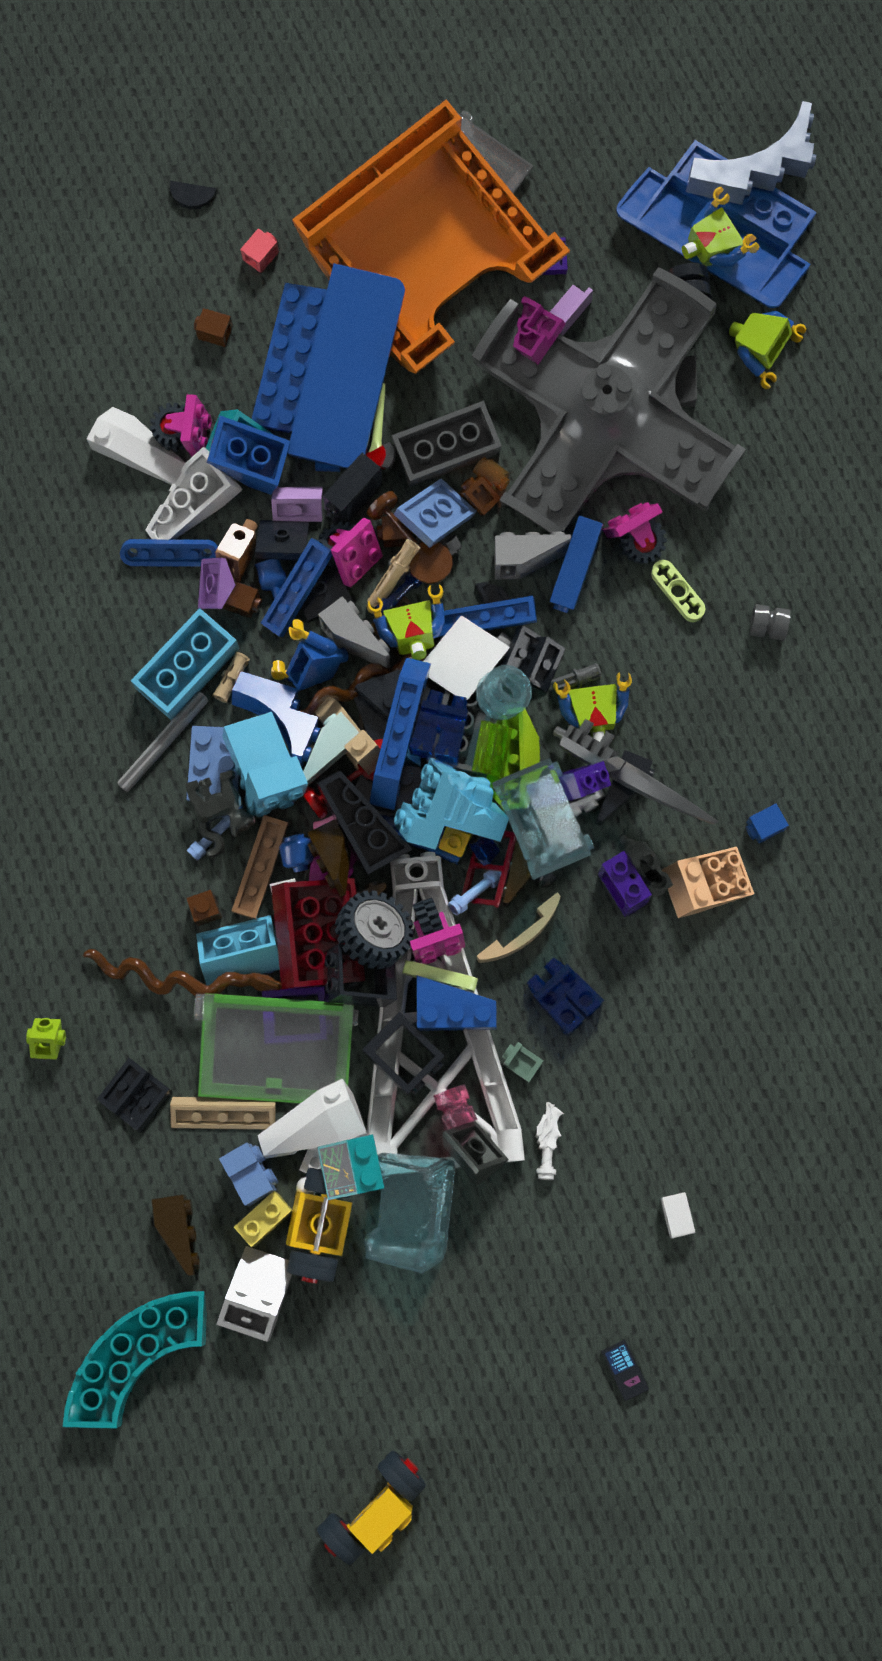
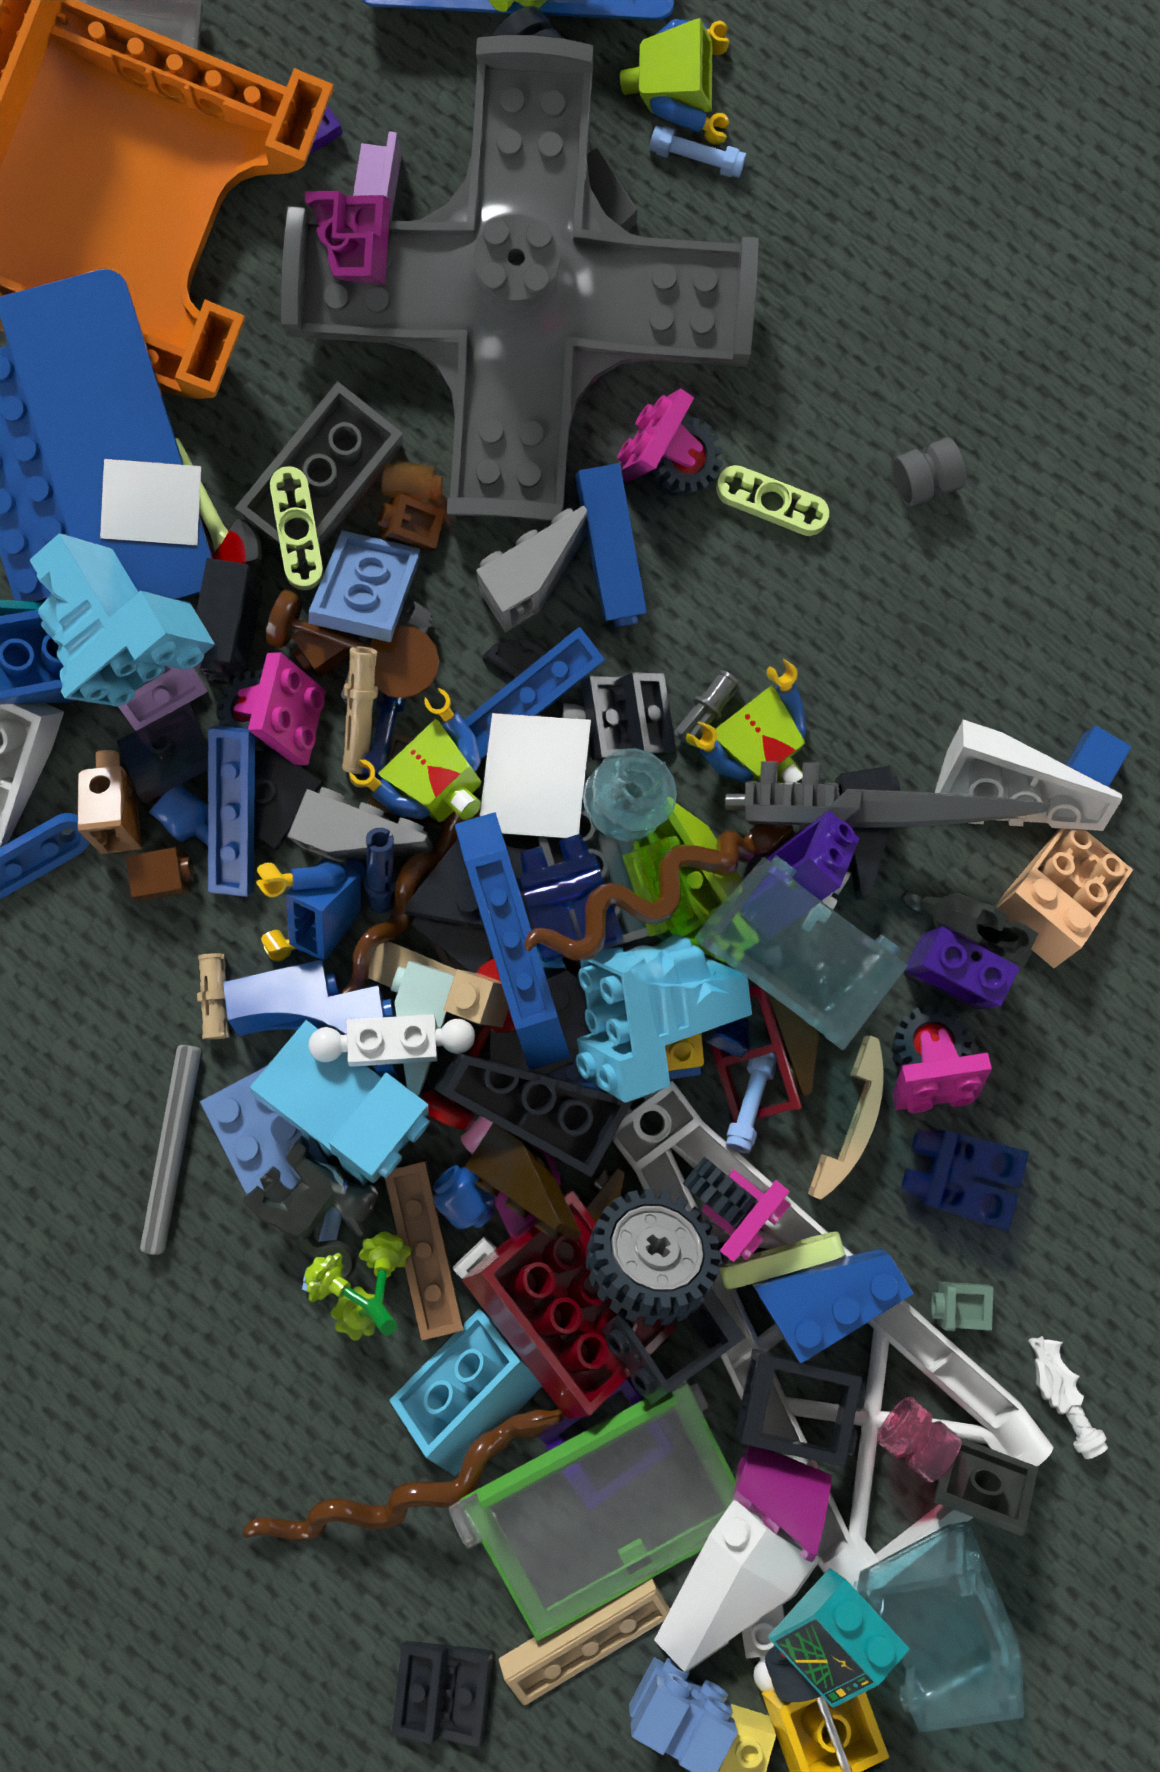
camera: 35 degrees left, 5 degrees up
(45, 1038) = (264, 1697): lime brick -> none
(185, 664) = (134, 1020): medium azure brick -> none
(204, 908) = (379, 1362): reddish brown brick -> none
(213, 877) = (355, 1308): none -> lime plant
(215, 583) = (107, 876): medium lavender slope -> none
(290, 458) = (106, 628): none -> medium azure brick
(308, 745) = (391, 1040): none -> white plate
(350, 408) = (150, 502): none -> white sticker
(352, 664) = (379, 878): none -> dark blue pin
(369, 1091) = (784, 1495): none -> magenta slope
(429, 449) = (280, 501): none -> yellowish green beam
(530, 754) = (722, 861): none -> reddish brown animal
(583, 928) = (936, 1062): none -> dark pink plate
(714, 796) = (1001, 767): none -> white wedge
(736, 371) = (664, 141): none -> light blue bar

